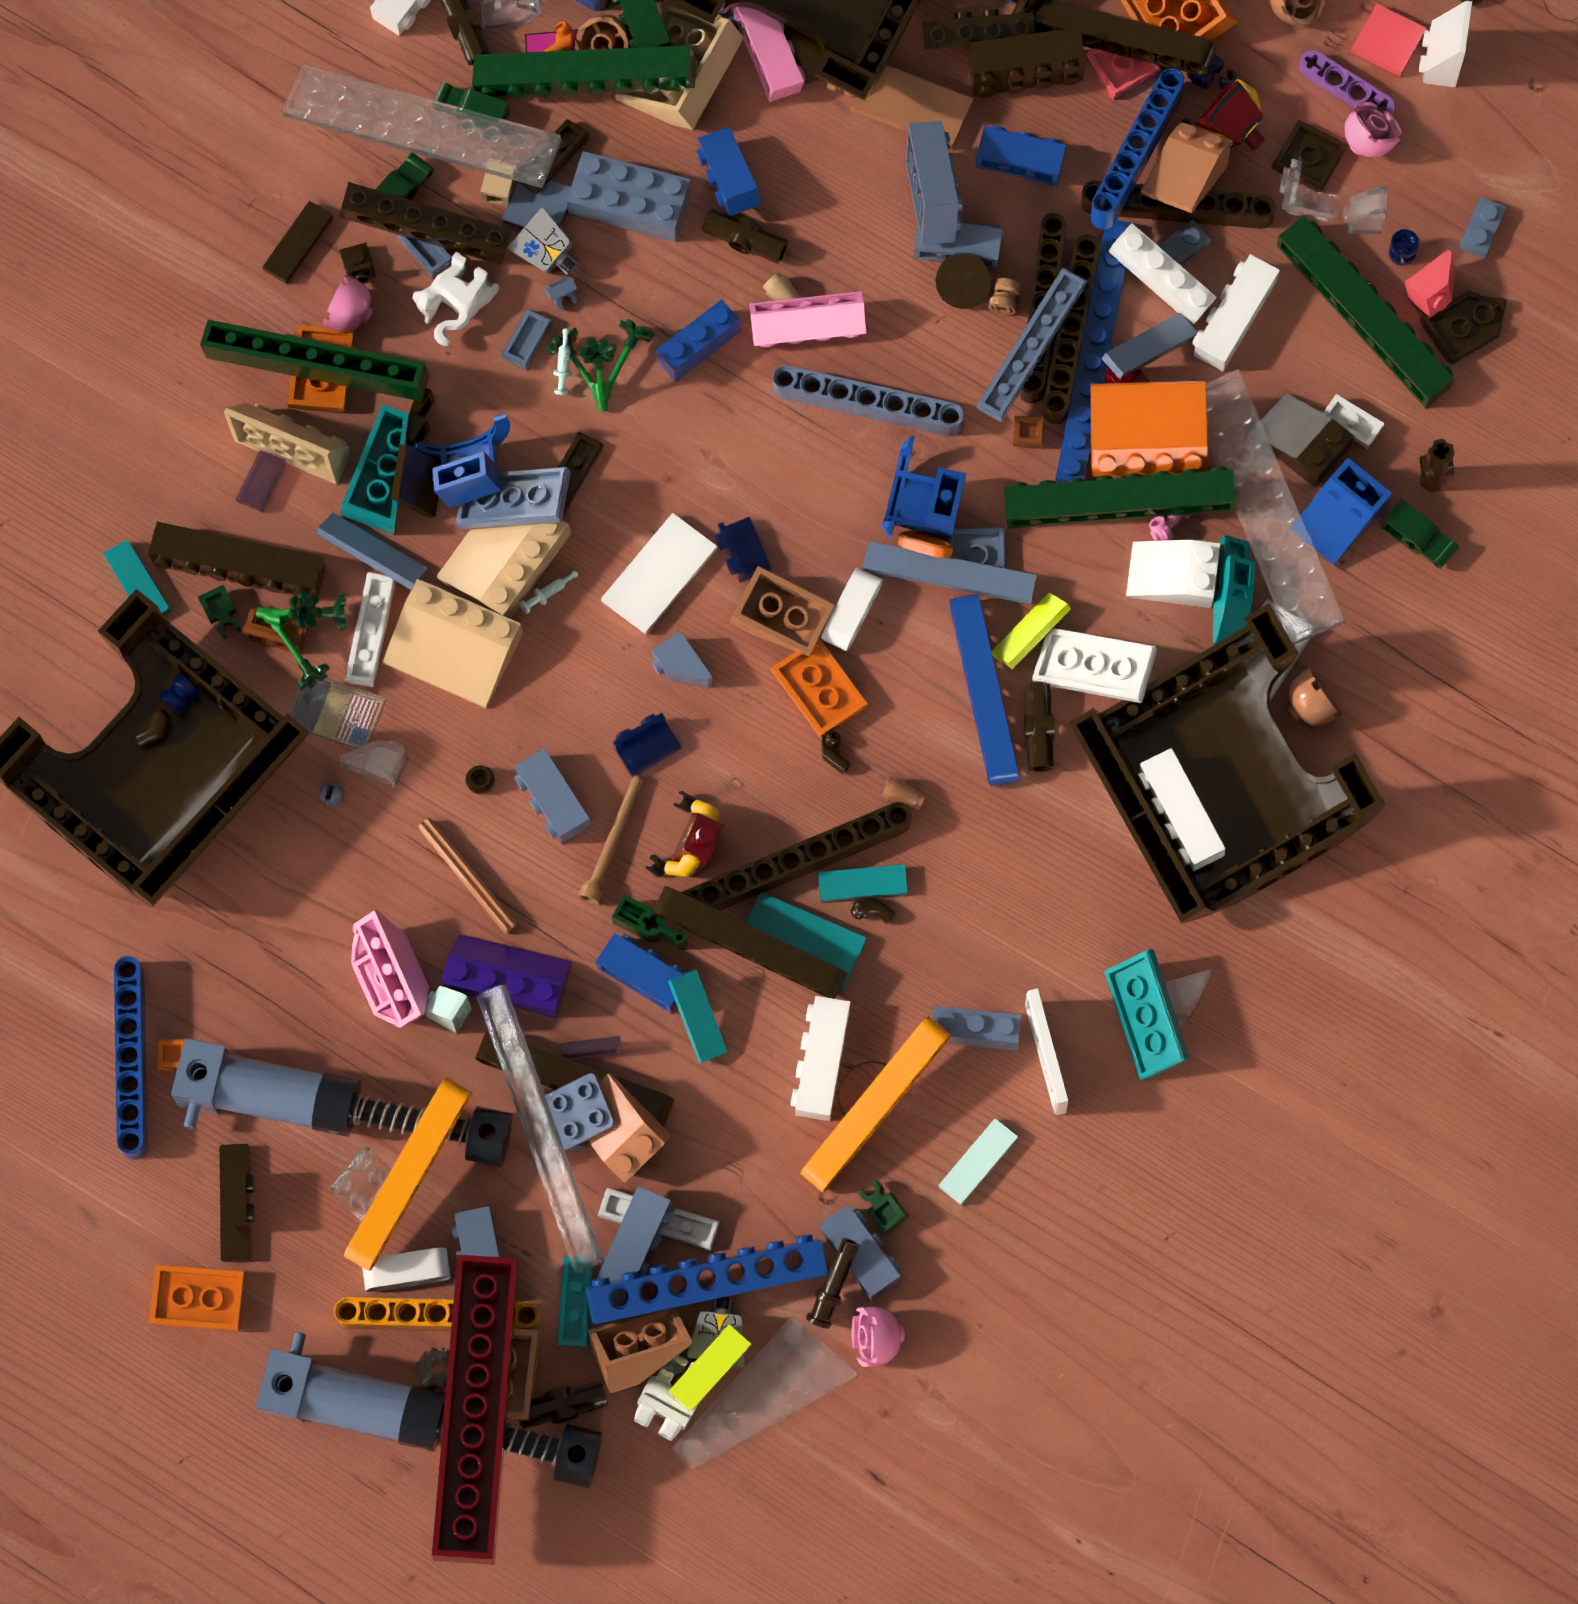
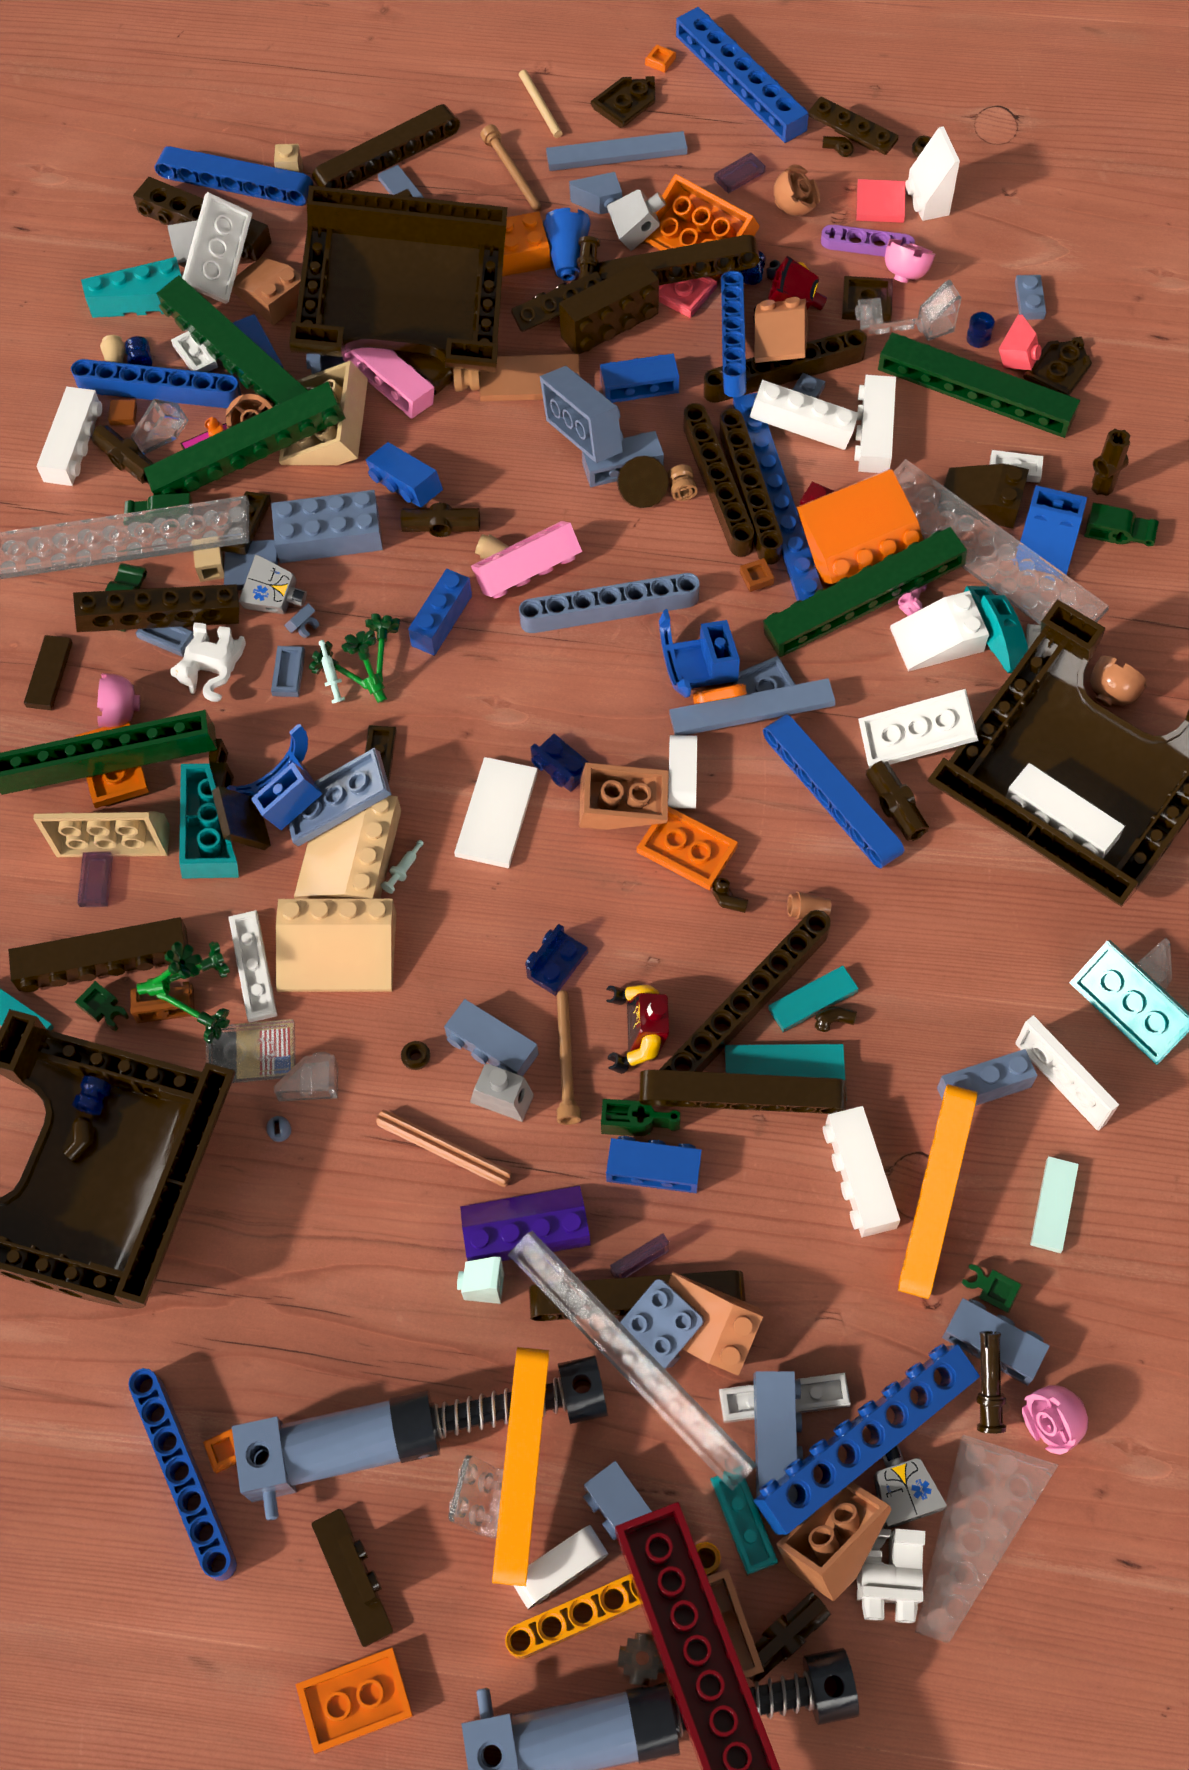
camera: 25 degrees left, 10 degrees down
(358, 262) = (110, 664): dark brown bracket -> none
(371, 550) = (223, 896): sand blue tile -> none
(388, 970) = (408, 1270): bright pink wedge -> none
(538, 848) = (500, 1092): none -> light grey torso
(680, 662) = (553, 876): sand blue slope -> none
(697, 1016) = (727, 1182): teal tile -> none
(709, 1368) = (918, 1527): neon yellow tile -> none
(1030, 630) = (846, 726): neon yellow tile -> none
(1031, 344) = (727, 504): sand blue tile -> none
(1149, 345) = (824, 469): sand blue tile -> none

